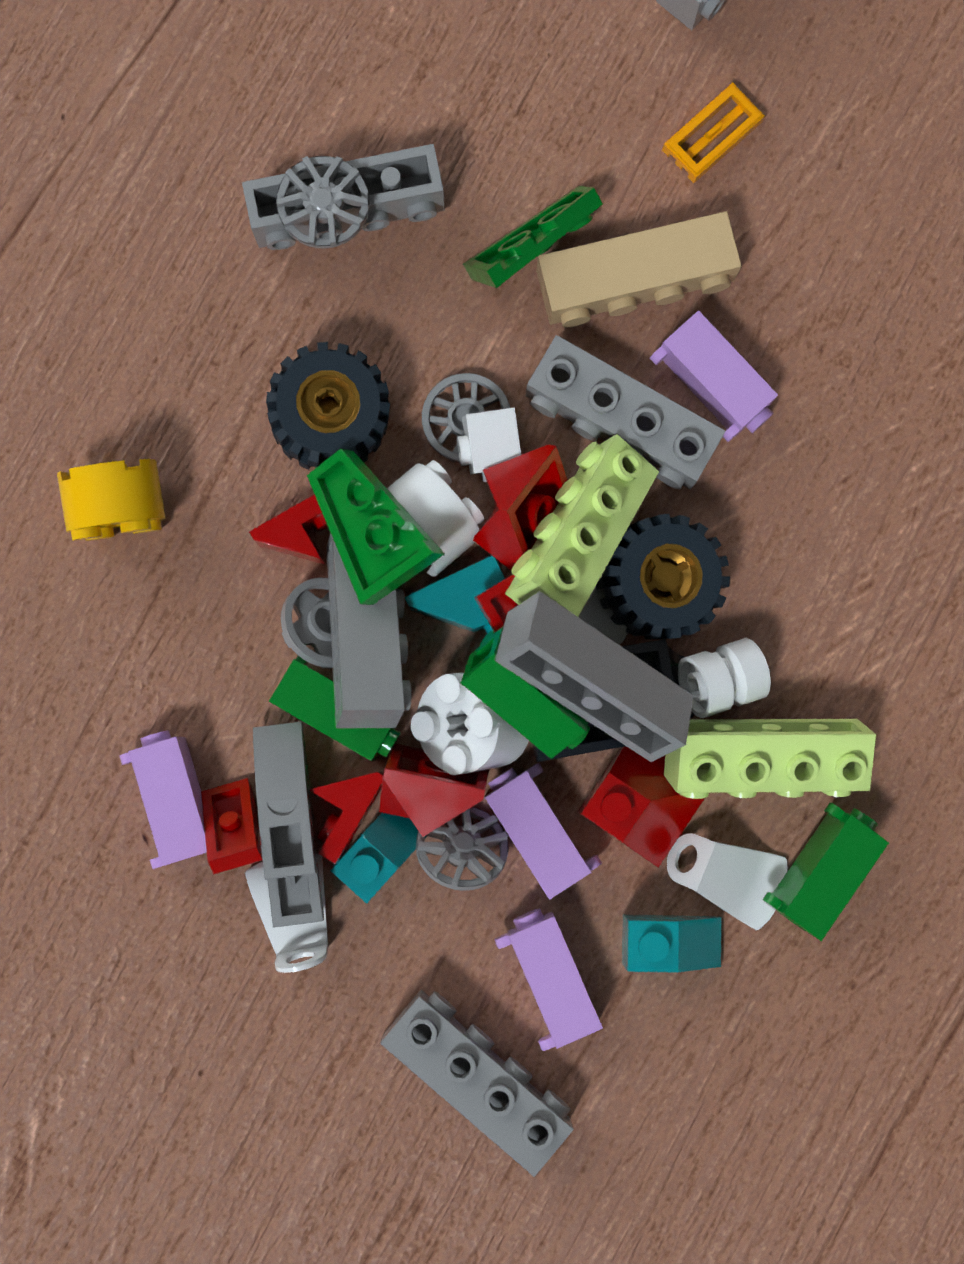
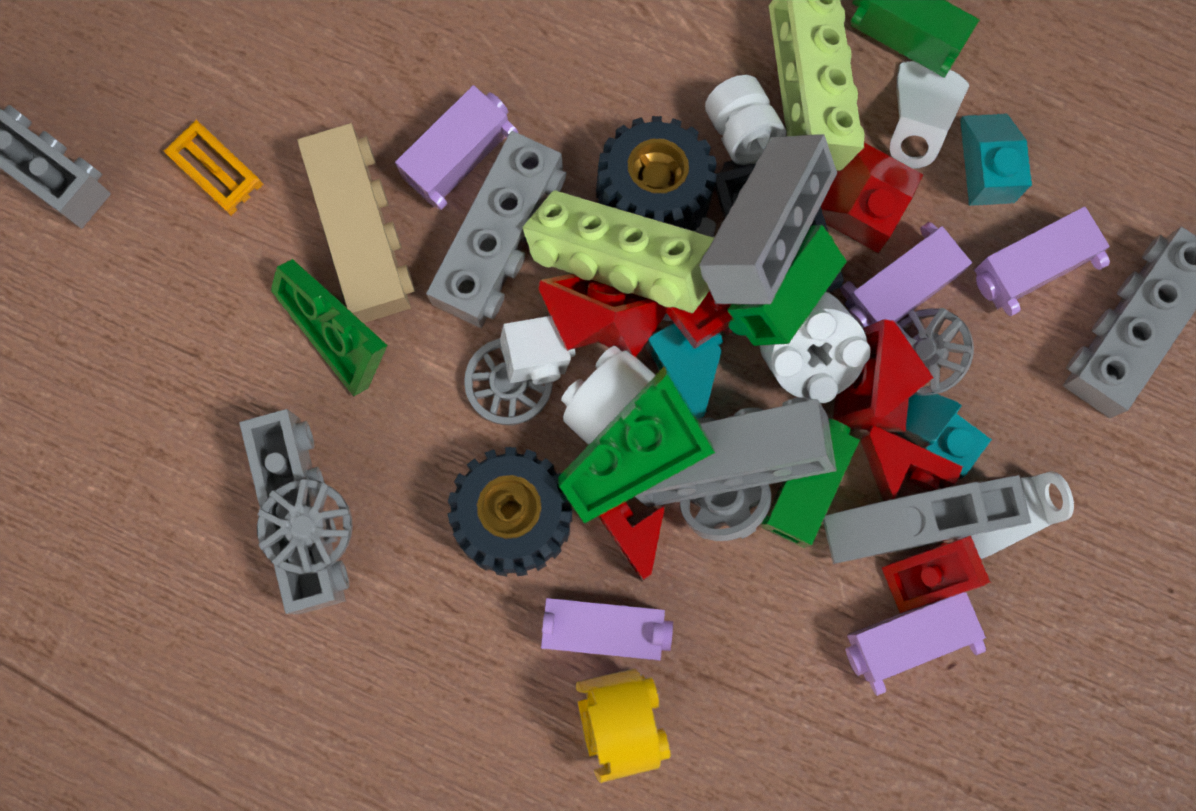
camera: 90 degrees left, 5 degrees down
(207, 493) = (605, 629): none -> lavender brick

